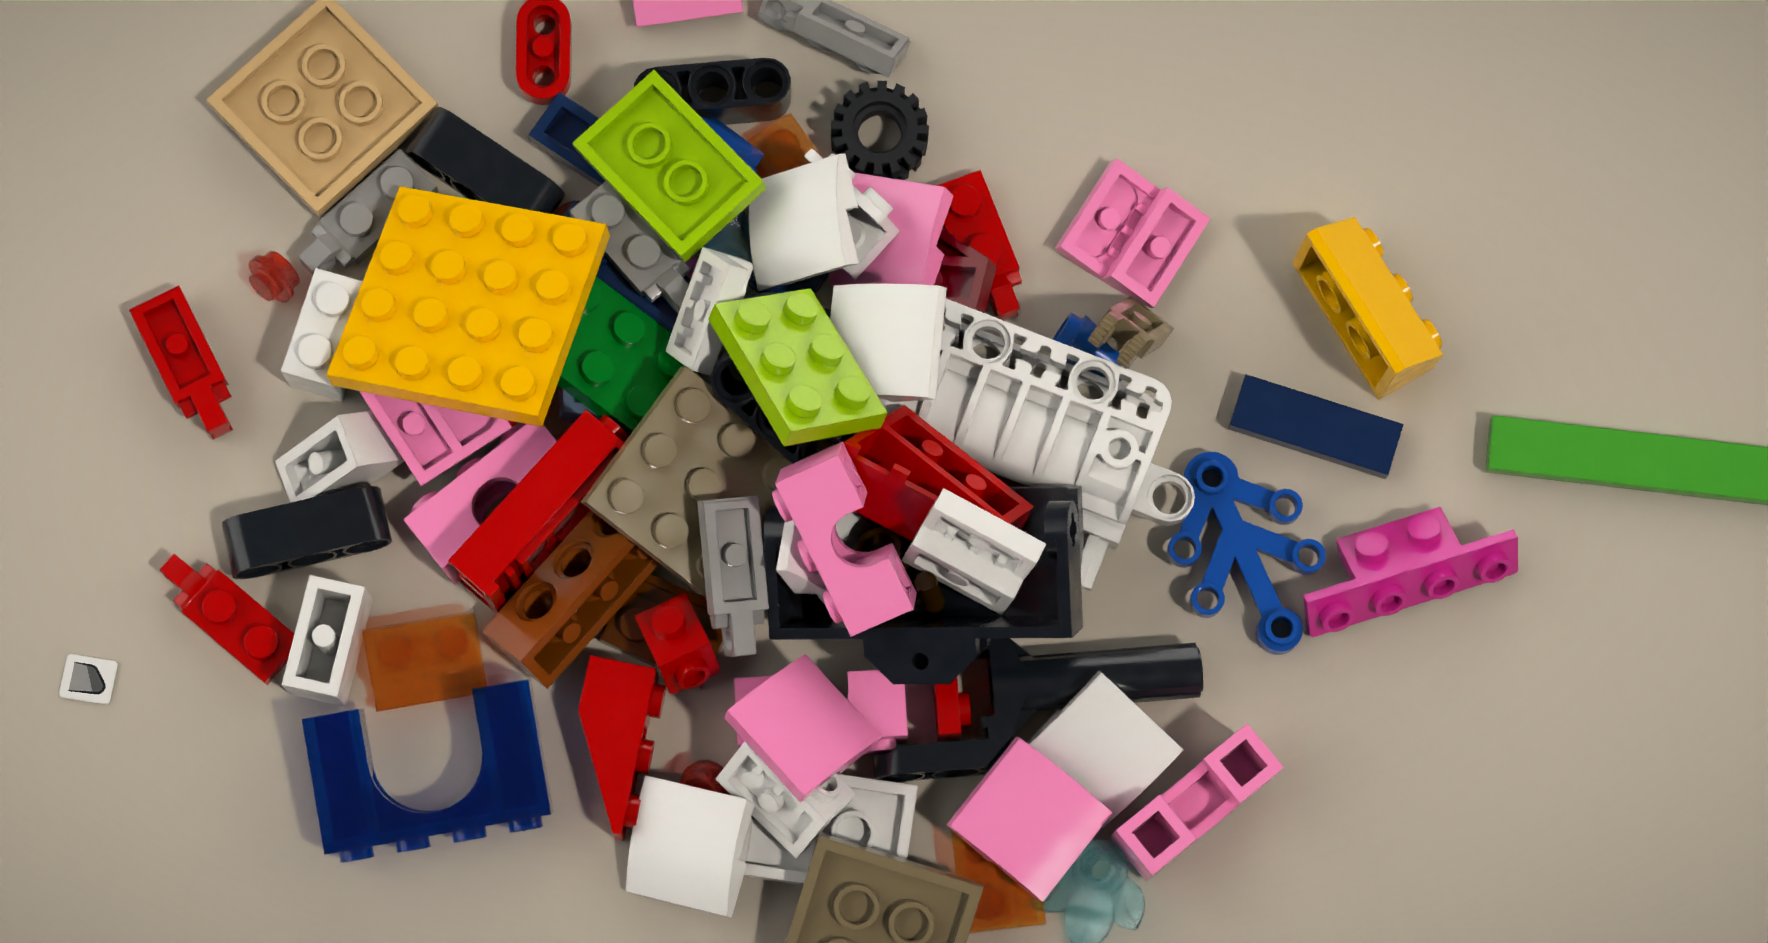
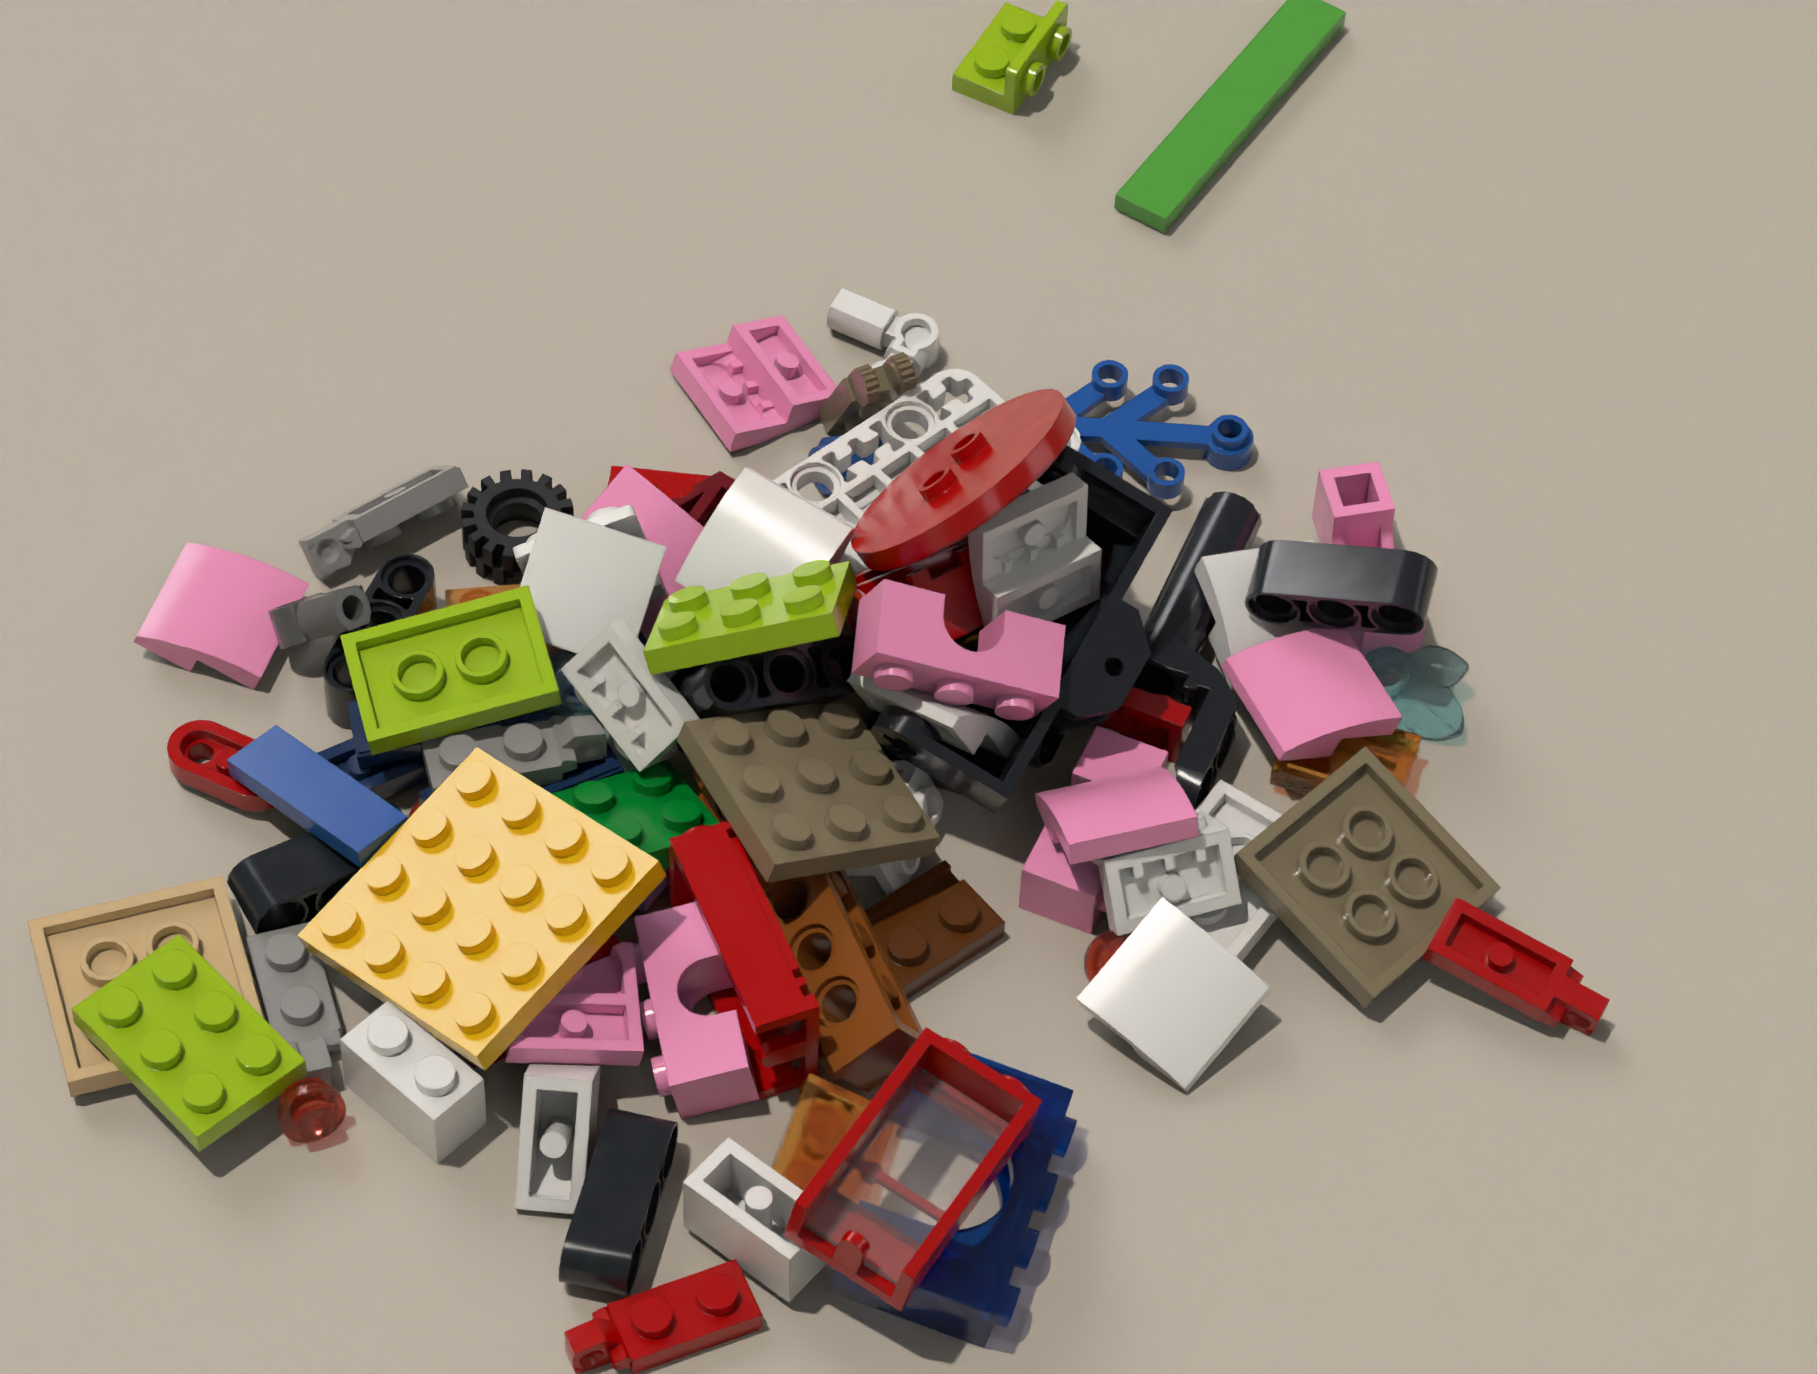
camera: 60 degrees left, 25 degrees down
(184, 358) = (348, 1234): red hinge -> none
(274, 163) = (189, 1042): none -> lime plate
(394, 736) = (912, 1168): none -> door
(525, 131) = (316, 795): none -> blue tile
(615, 721) = (1017, 1016): red slope -> none
(678, 644) = (954, 901): red bracket -> none
(693, 33) = (320, 616): none -> dark grey bar
(734, 570) = (924, 786): light grey hinge -> none
(997, 463) = (964, 480): none -> red plate
(1118, 799) = (1341, 587): none -> black beam
(1242, 331) = (882, 328): none -> white bar
(1315, 426) = (1042, 329): dark blue tile -> none
(1367, 305) = (954, 235): yellow slope -> none
(1404, 567) = (1223, 317): dark pink bracket -> none
(1604, 256) = (1013, 56): none -> lime bracket

